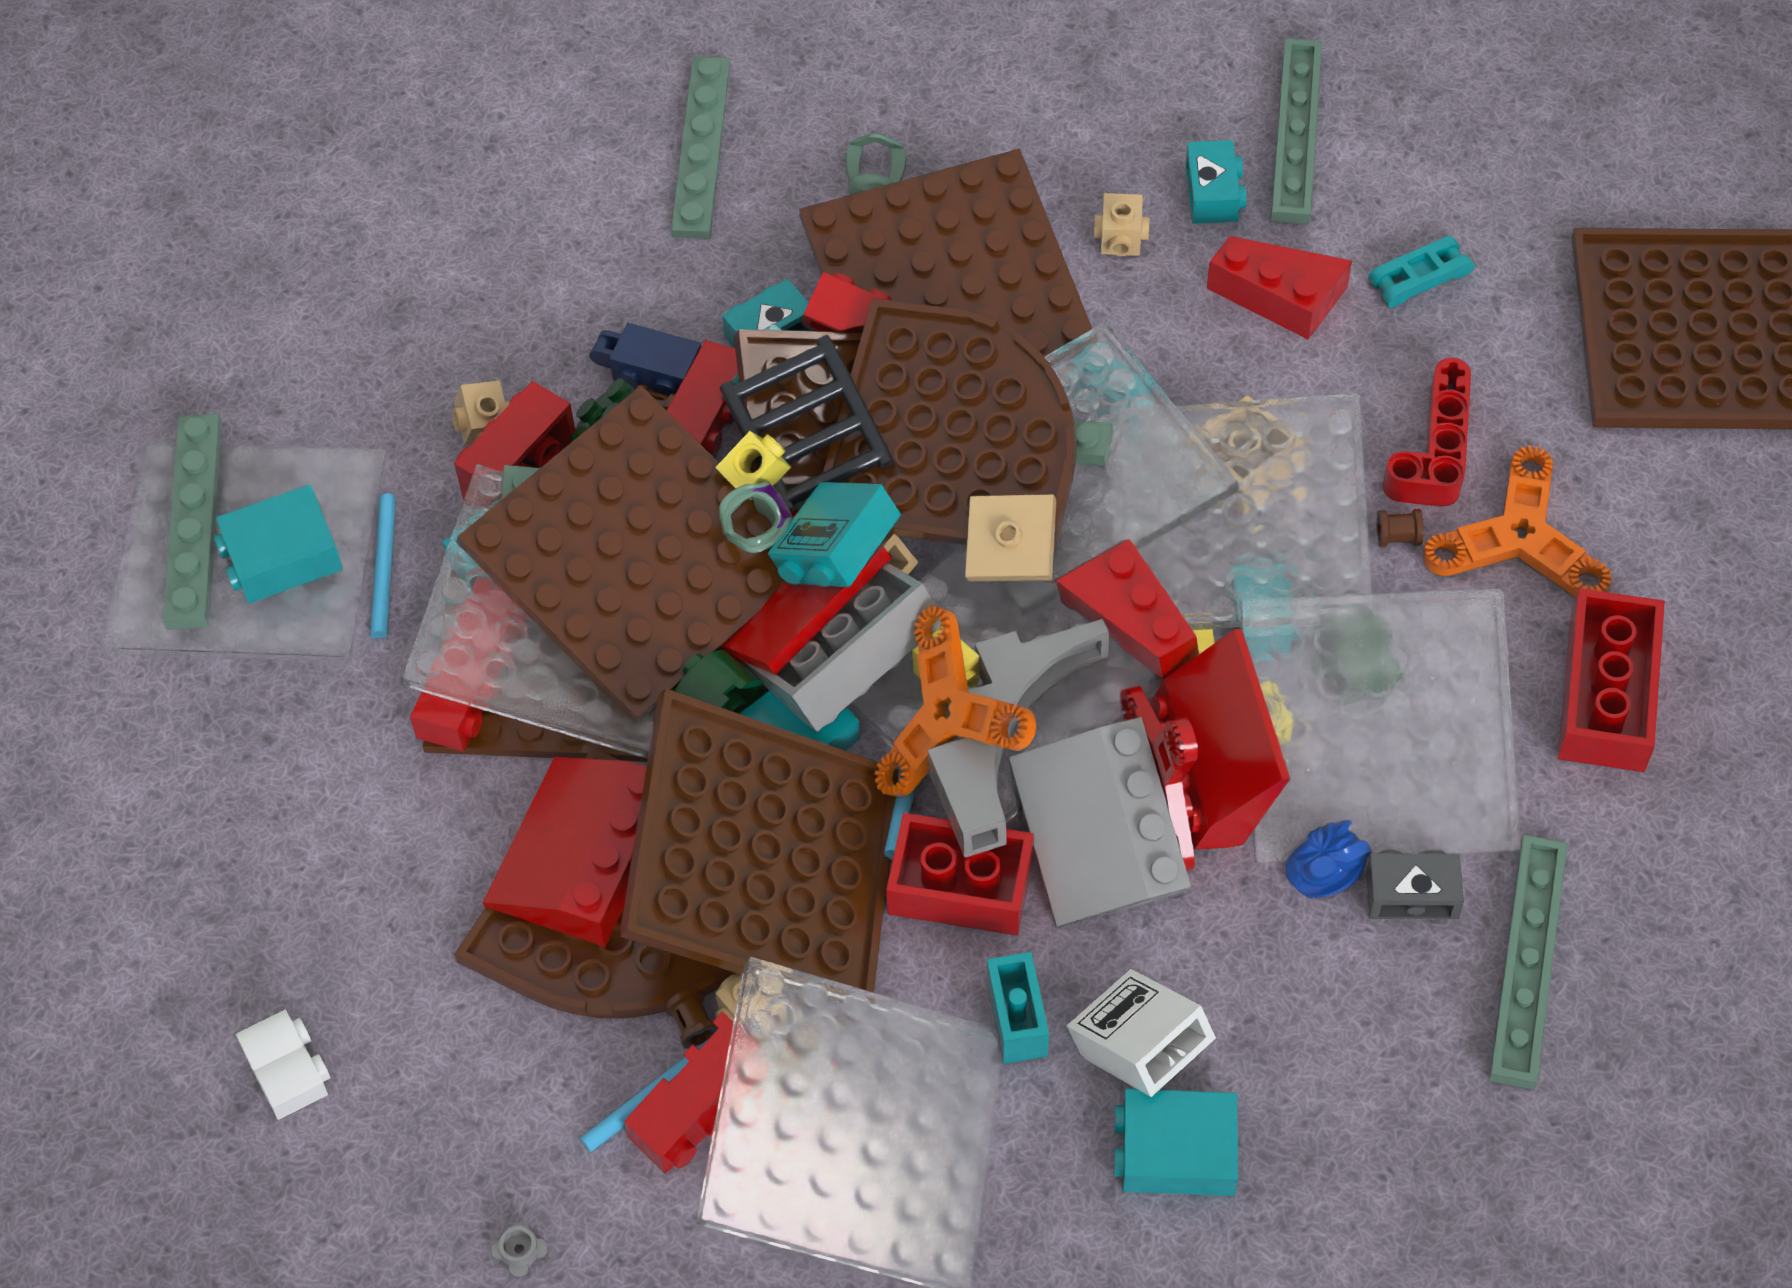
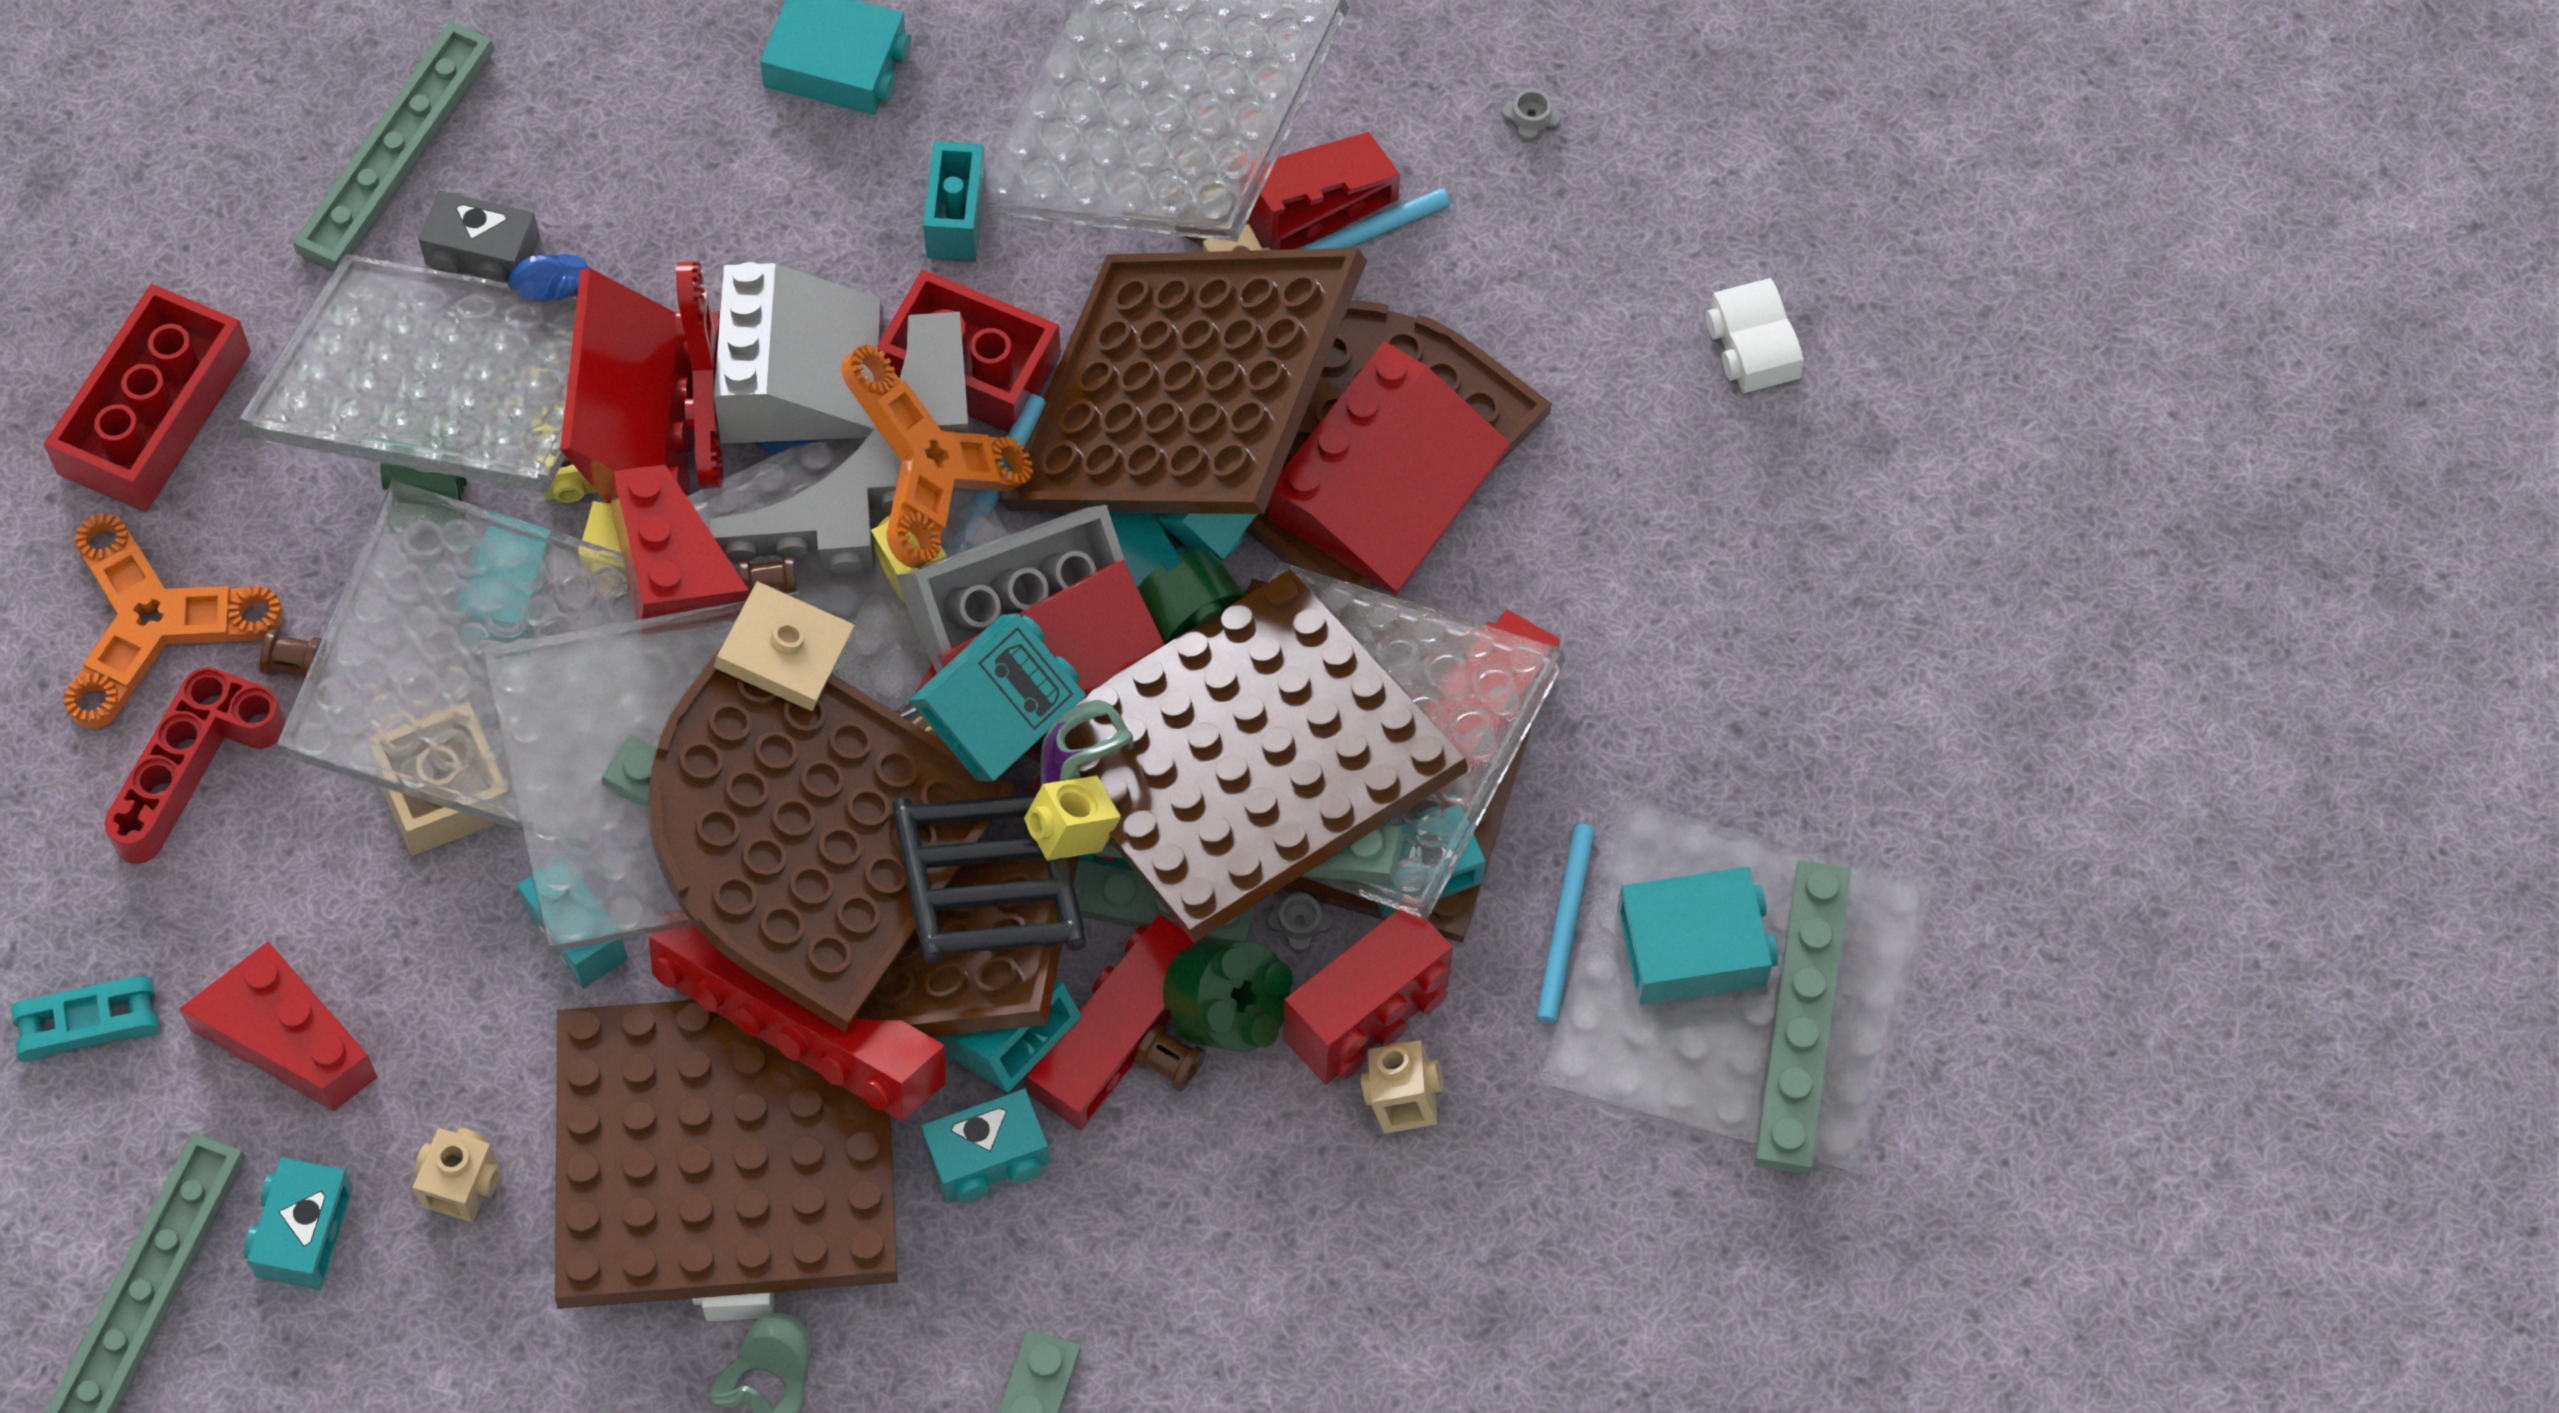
camera: 170 degrees left, 5 degrees up
(646, 357) = (1161, 1125): dark blue brick -> none
(1050, 618) = (776, 575): none -> reddish brown bush
(1141, 1032) = (836, 139): white brick -> none

